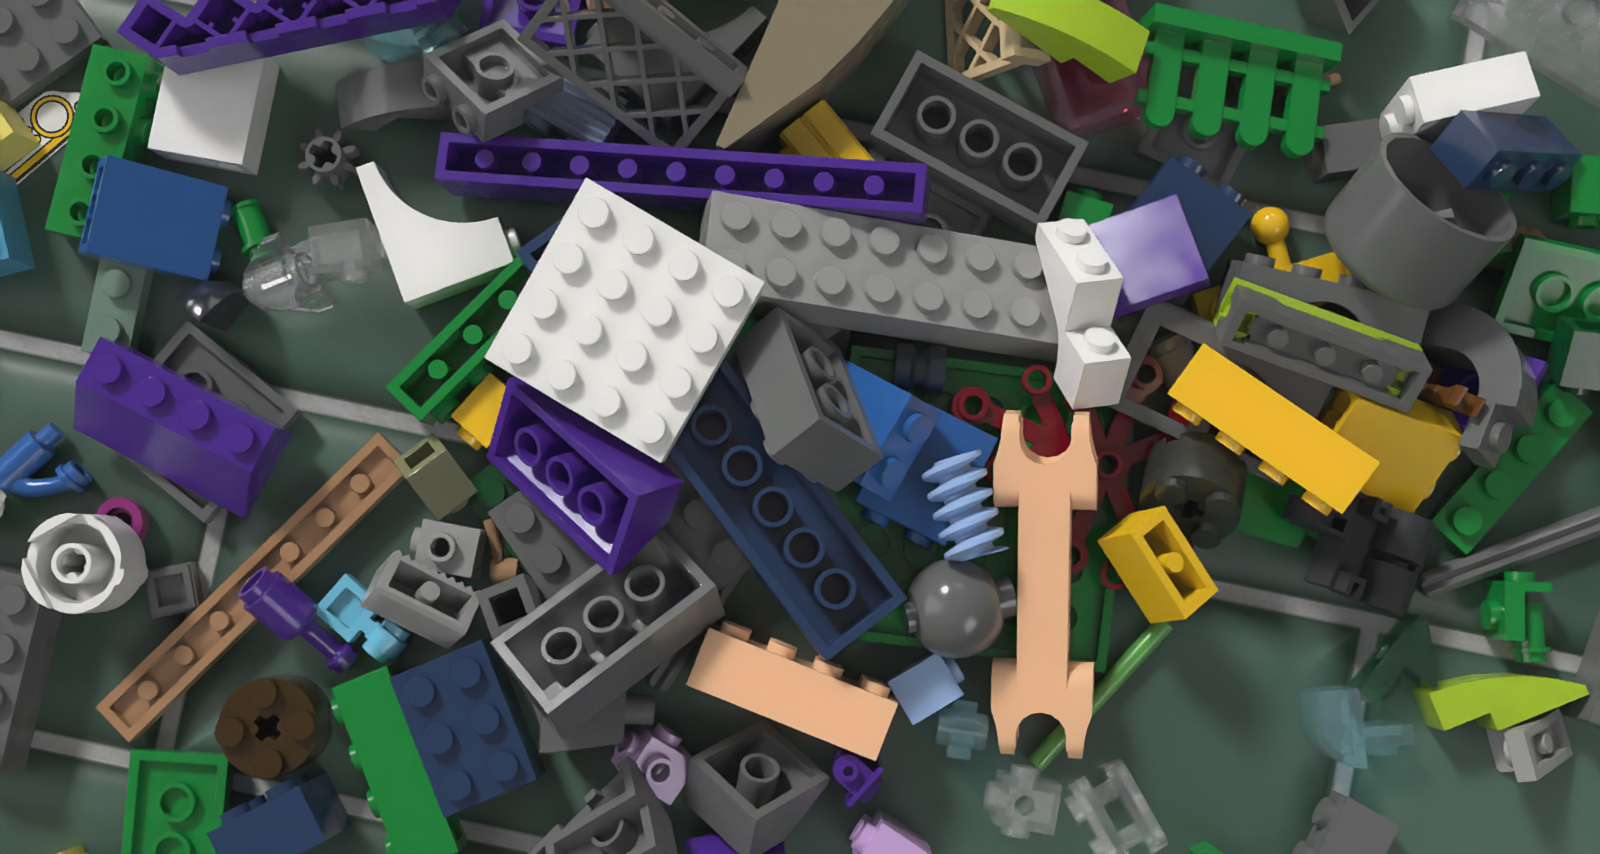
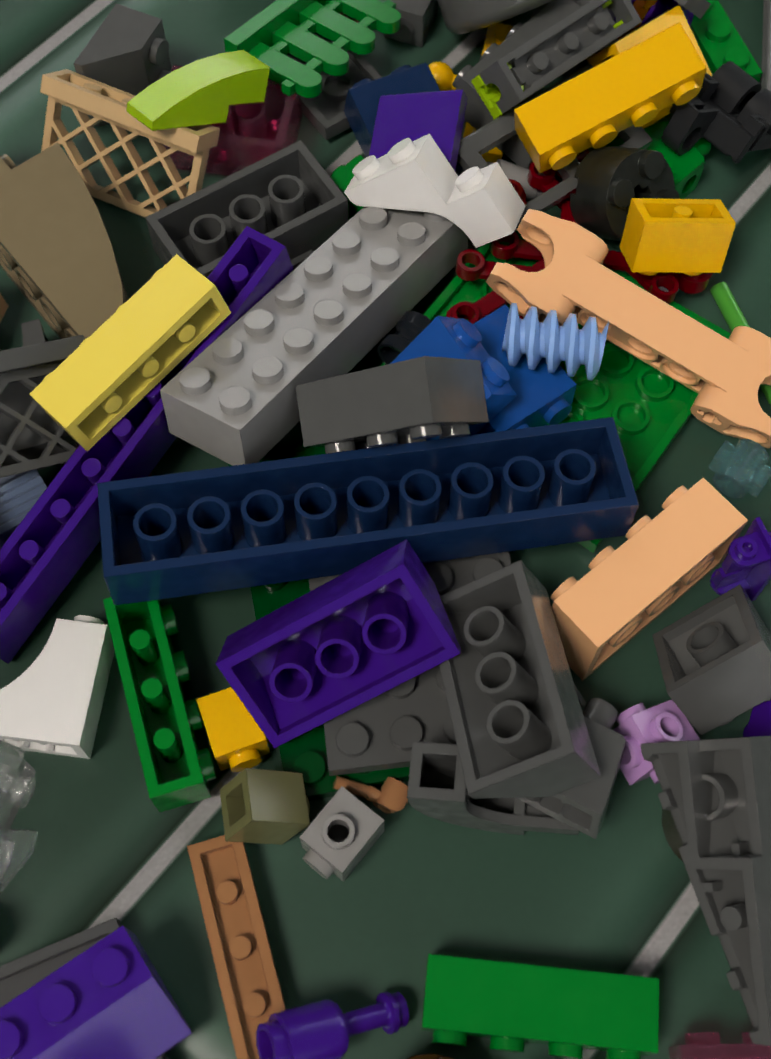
camera: 65 degrees left, 20 degrees down
(345, 615) = (349, 972): medium azure plate -> none
(421, 600) = (379, 881): light grey brick -> none
(467, 726) = (532, 905): dark blue brick -> none
(625, 320) = (229, 510): white plate -> none
(738, 141) = (131, 352): none -> light yellow brick
(926, 685) = (686, 465): light blue brick -> none
(957, 608) = (641, 397): dark grey brick -> none

